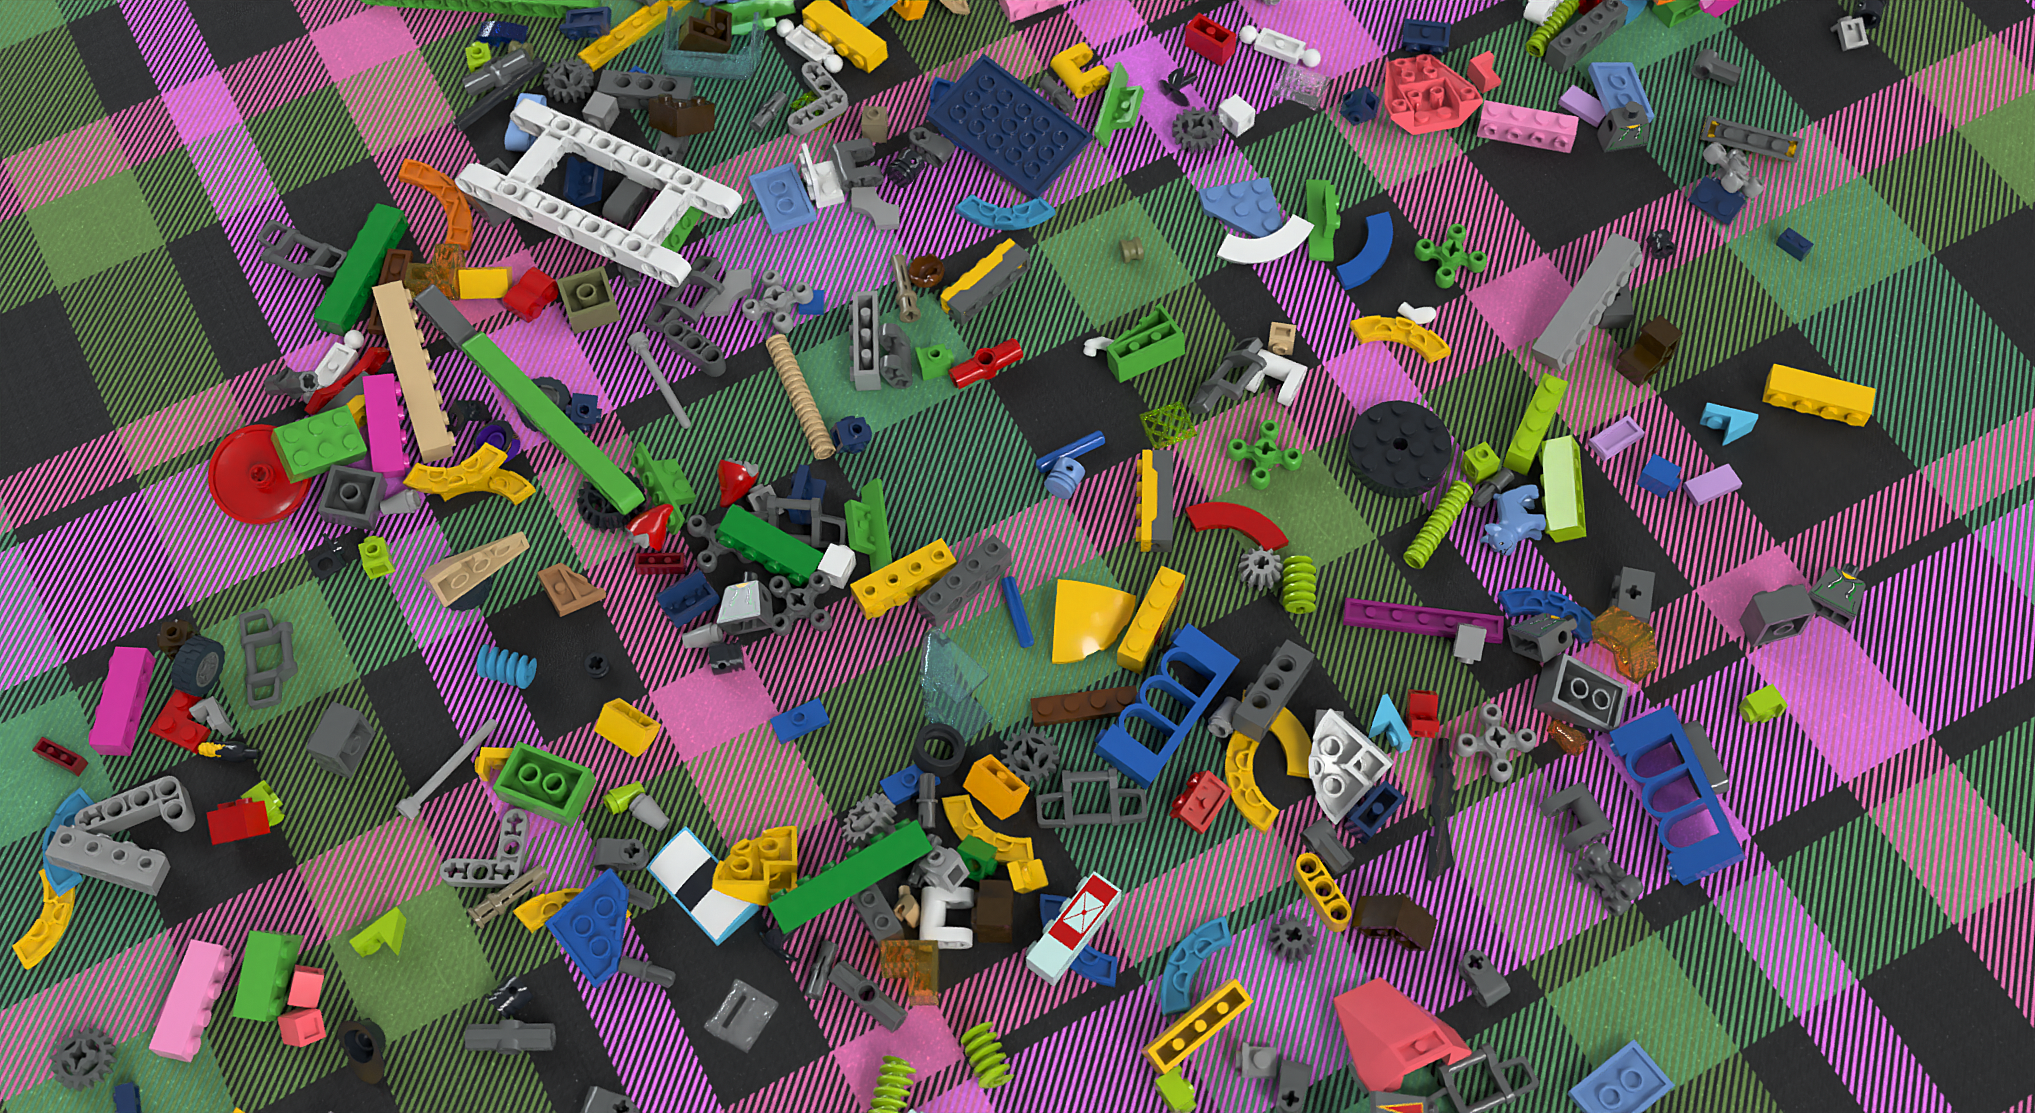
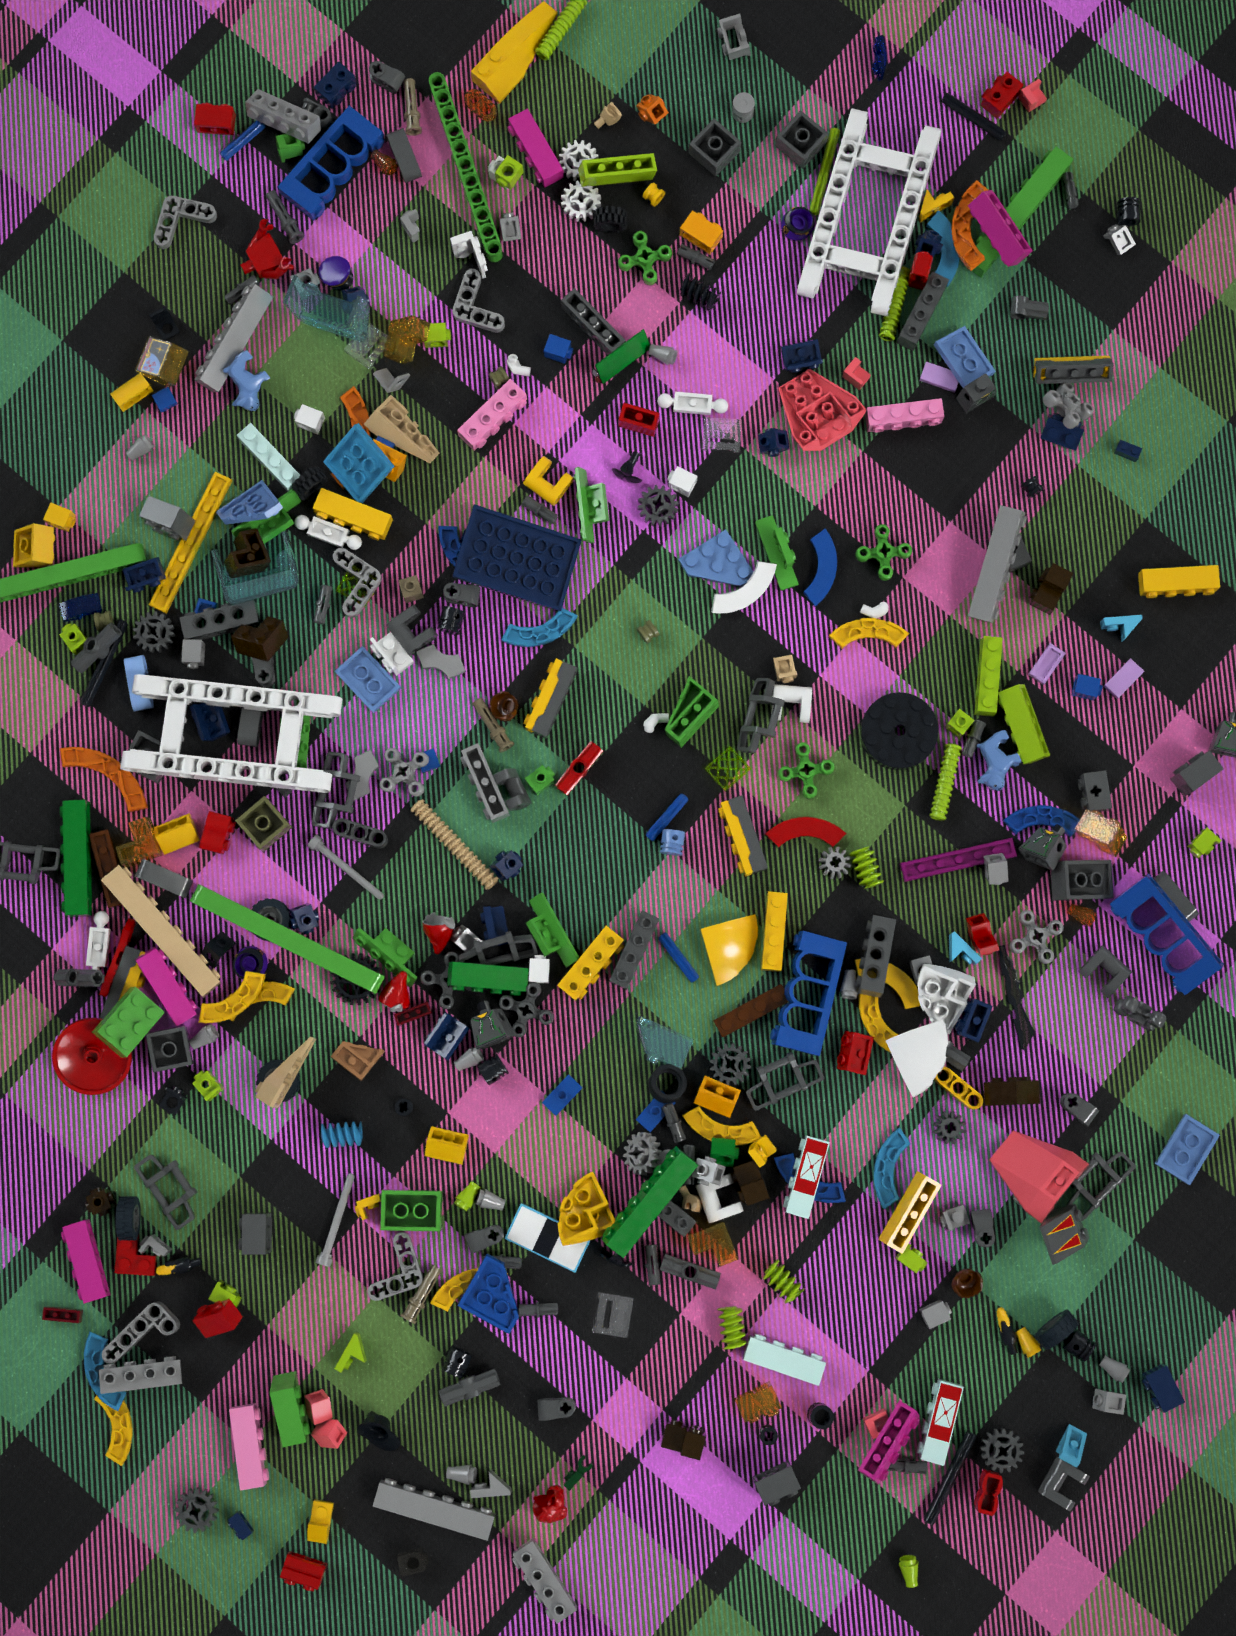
camera: 20 degrees left, 20 degrees up
(1285, 827) = (920, 1055): none -> white brick

